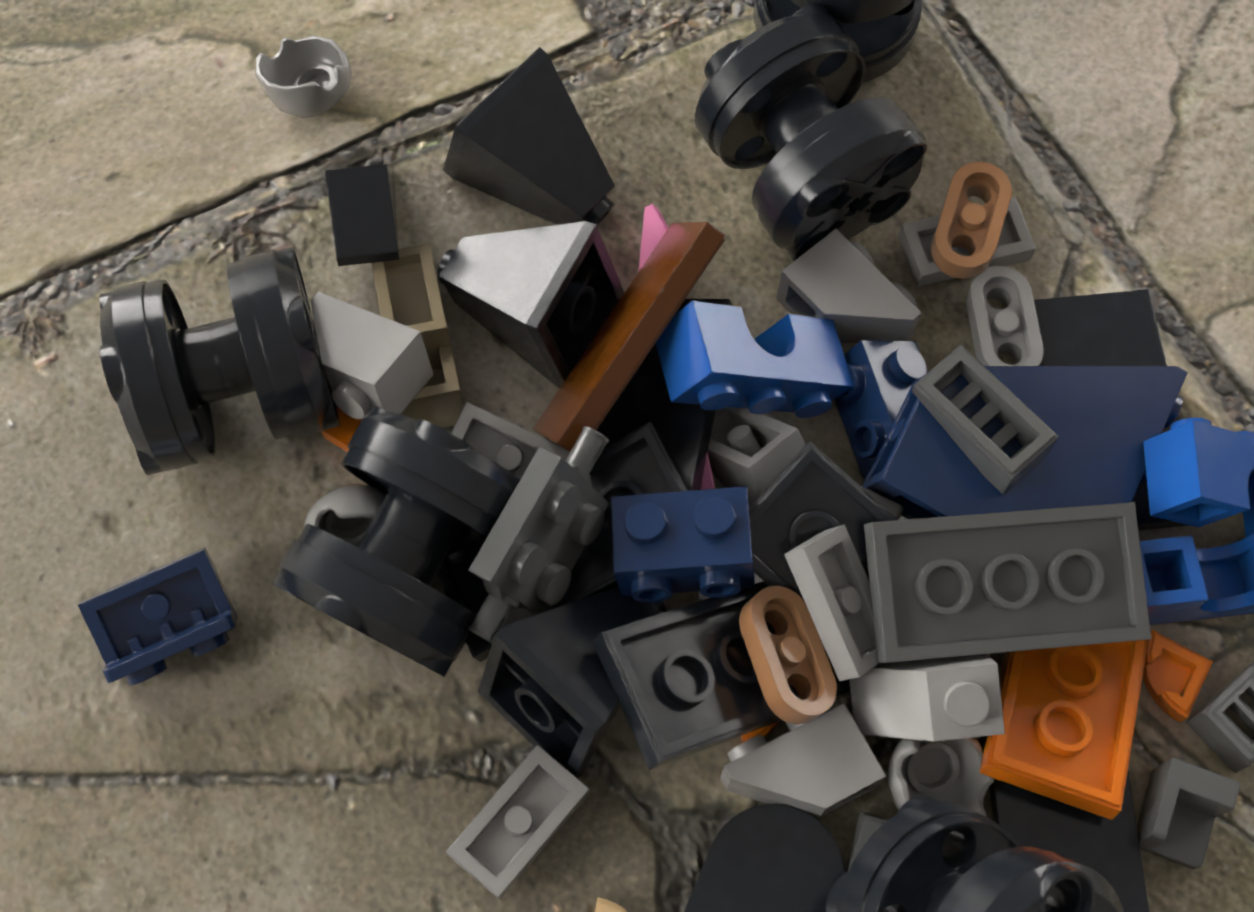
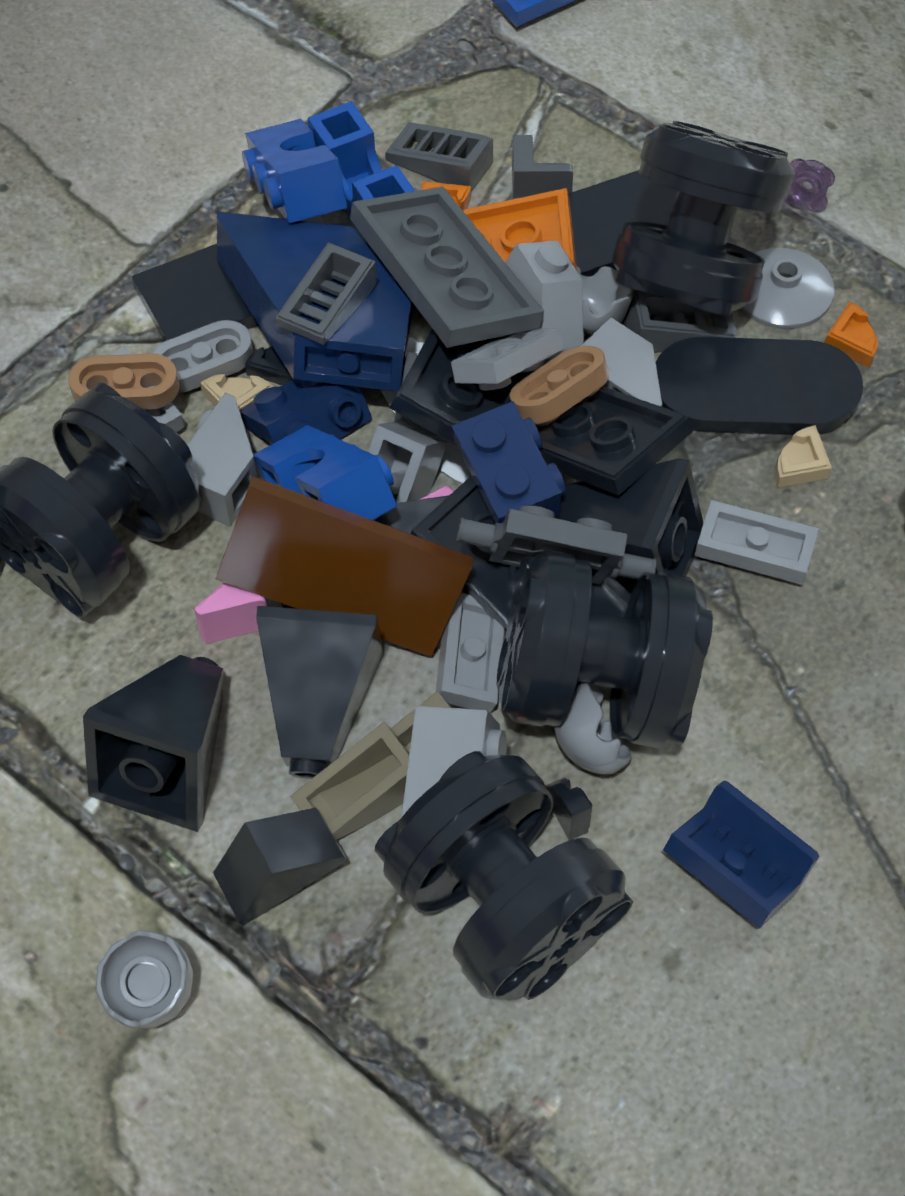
camera: 110 degrees left, 10 degrees down
(299, 482) = (570, 807): none -> black tile
(942, 339) = (242, 388): none -> tan tile

